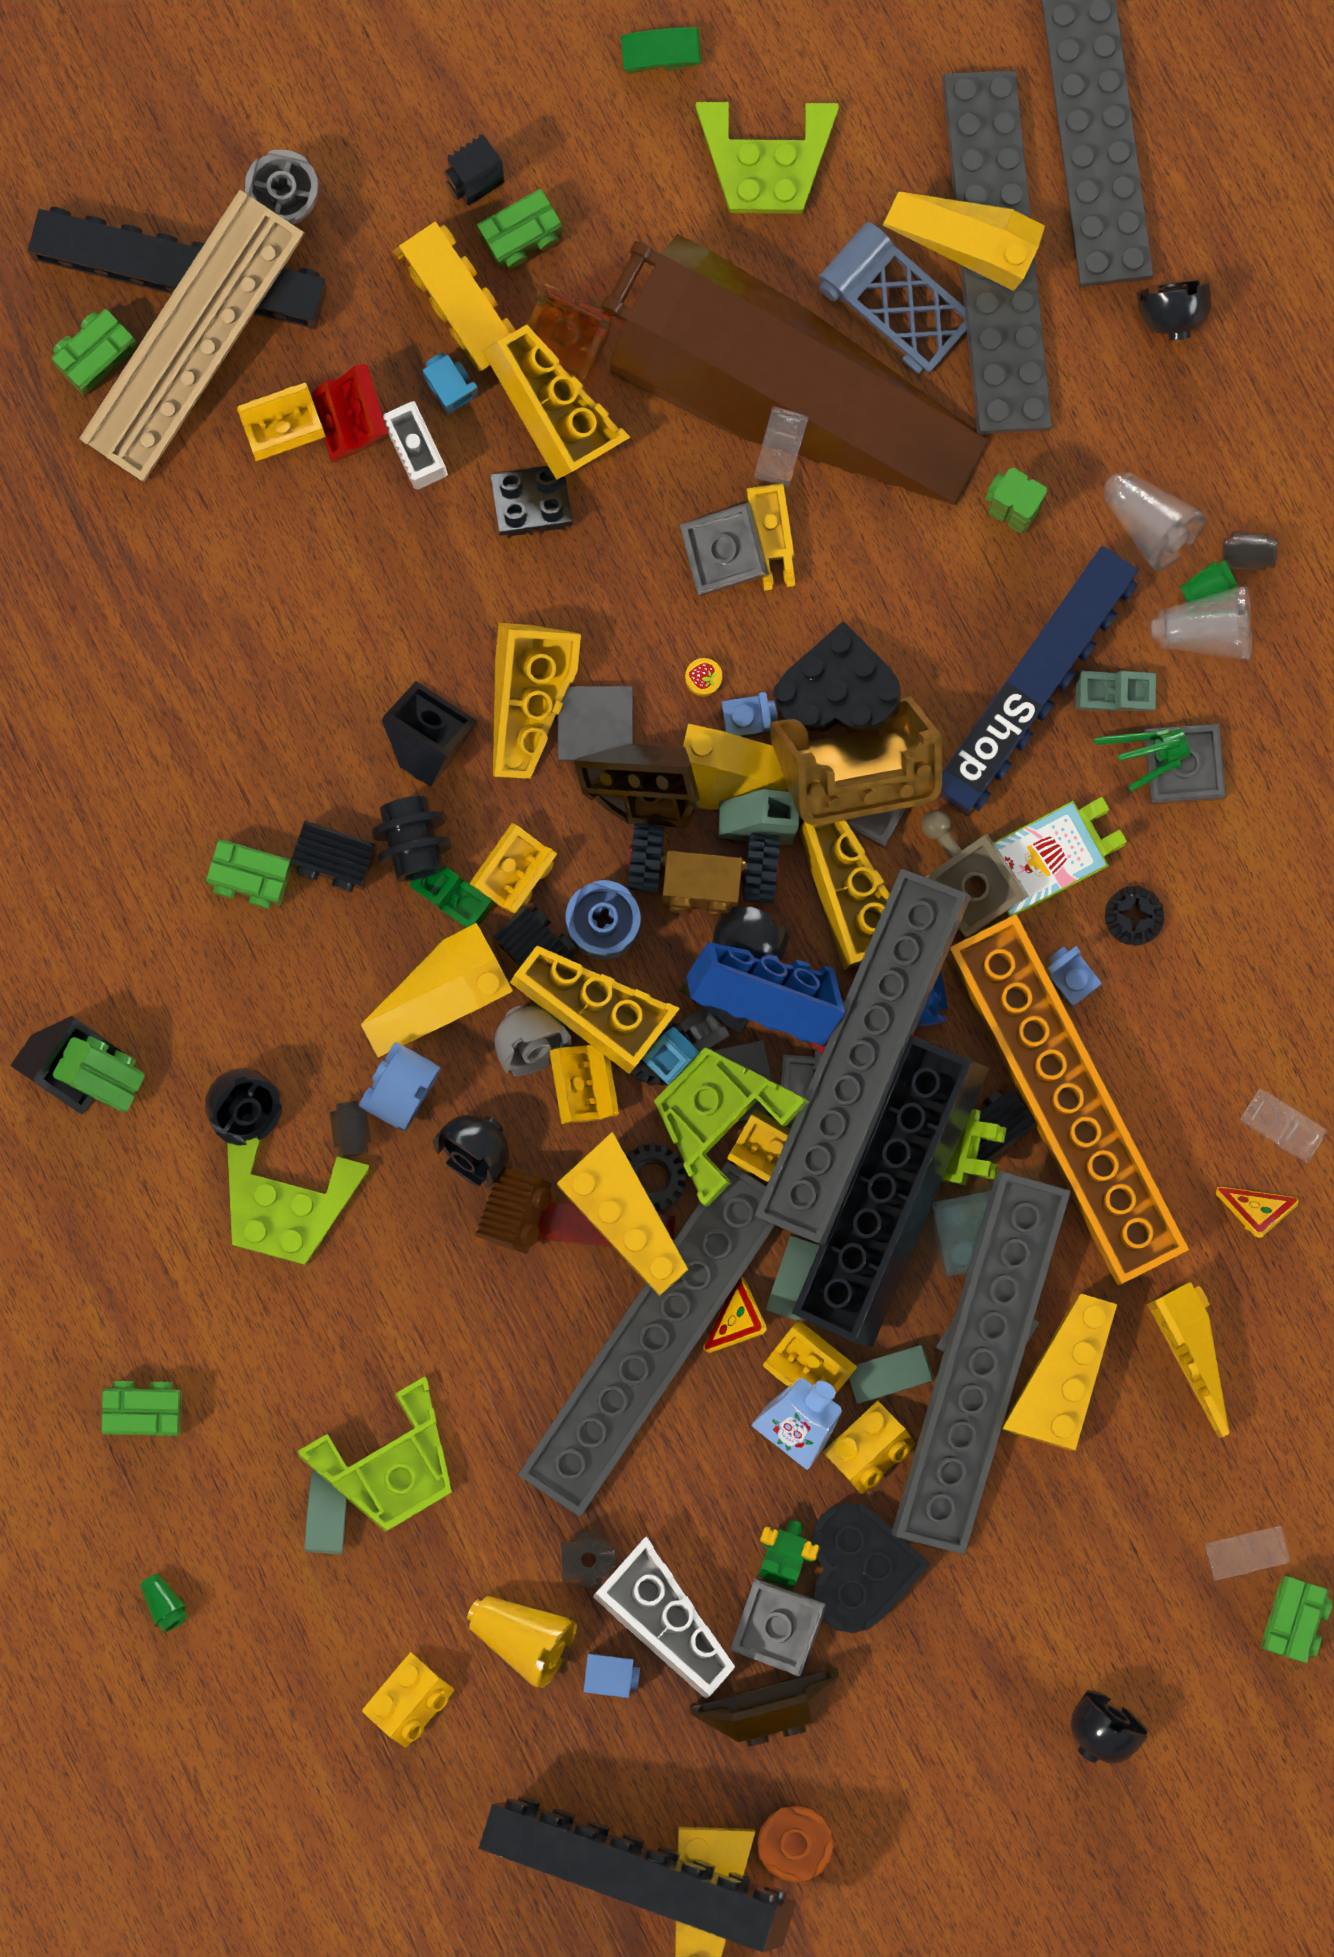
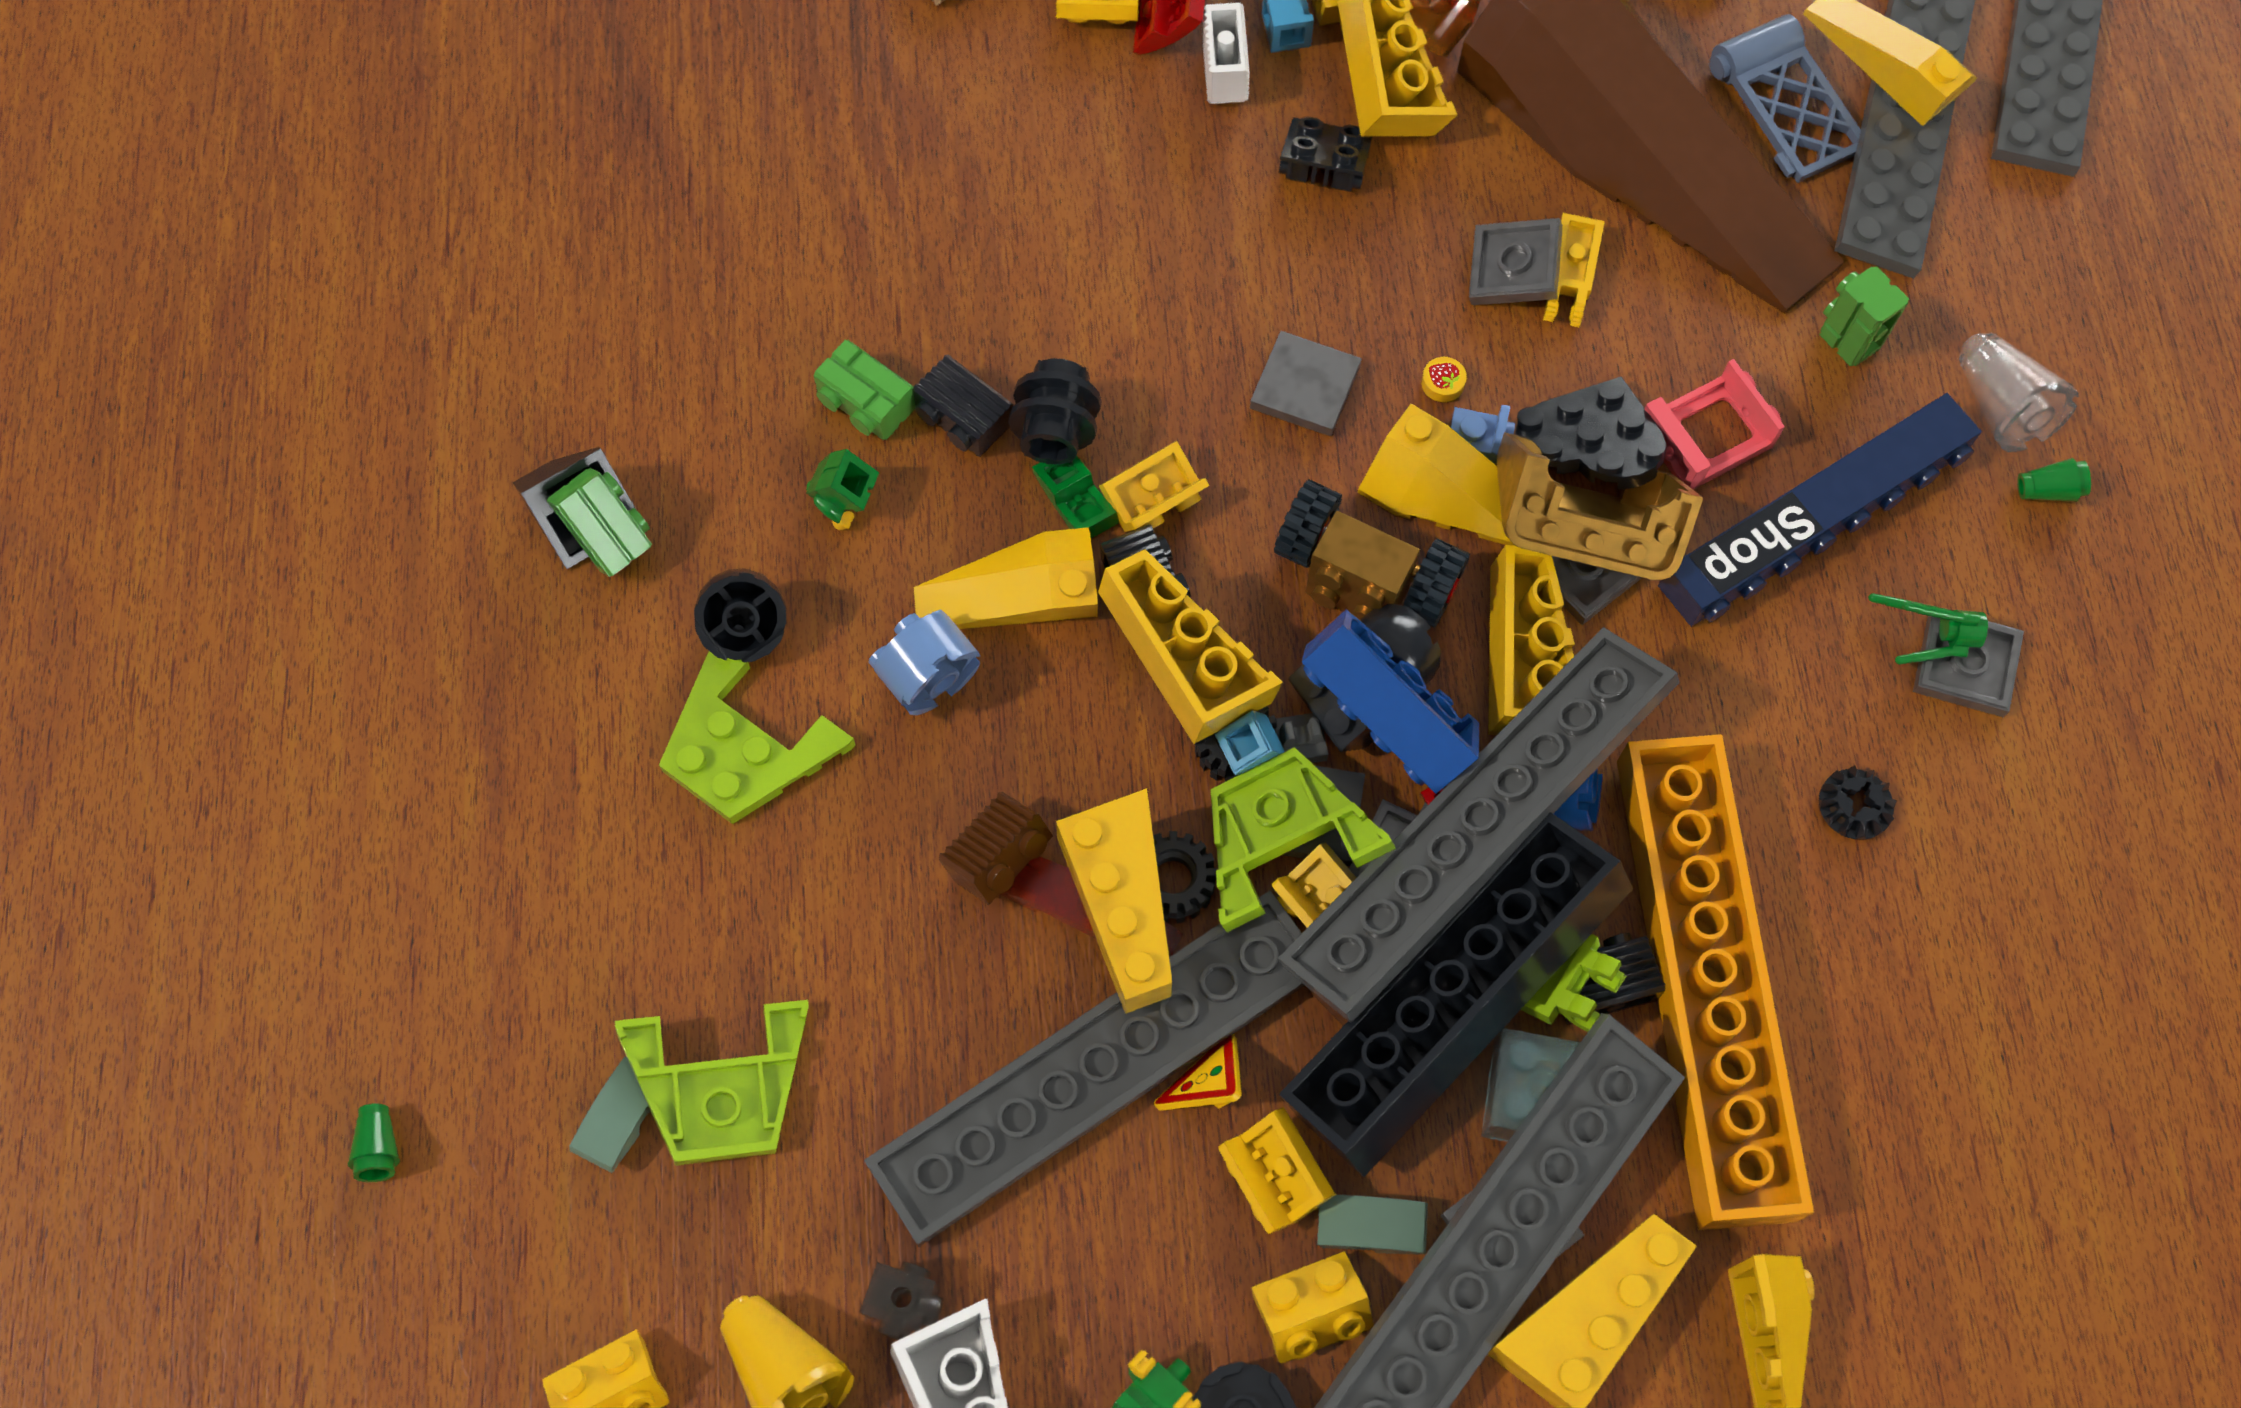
camera: 25 degrees right, 15 degrees down
(141, 1410) = (464, 907): bright green brick -> none
(270, 966) = (841, 485): none -> green piece
(350, 1129) = (849, 691): clear smoke brick -> none
(426, 732) = (1117, 323): black slope -> none
(474, 1147) = (980, 760): black cylinder -> none
(527, 1037) = (1095, 670): light grey cylinder -> none
(530, 683) = (1252, 315): yellow wedge -> none
(583, 1084) = (1135, 741): yellow bracket -> none
(591, 902) = (1233, 572): medium blue brick -> none
(641, 783) = (1333, 447): dark brown wedge -> none
(759, 814) = (1459, 522): sand green slope -> none
(781, 446) = (1616, 180): clear slope -> none
(792, 1275) = (1293, 1055): sand green slope -> none
(800, 1420) = (1240, 1233): light blue torso -> none
(906, 663) = (1682, 453): none -> coral window
(978, 859) = (1697, 669): dark tan plate -> none
(1058, 851) = (1777, 698): tile -> none
(1071, 975) = (1763, 838): medium blue bracket -> none
(1115, 691) = (1913, 559): sand green slope -> none
(1175, 308) = (2100, 196): black cylinder -> none
(1208, 625) = (2046, 519): clear cone -> none
(1250, 551) = (2116, 464): clear smoke brick -> none
(1257, 1209) = (1911, 1205): piece -> none
(1283, 1125) = (1975, 1113): clear slope -> none

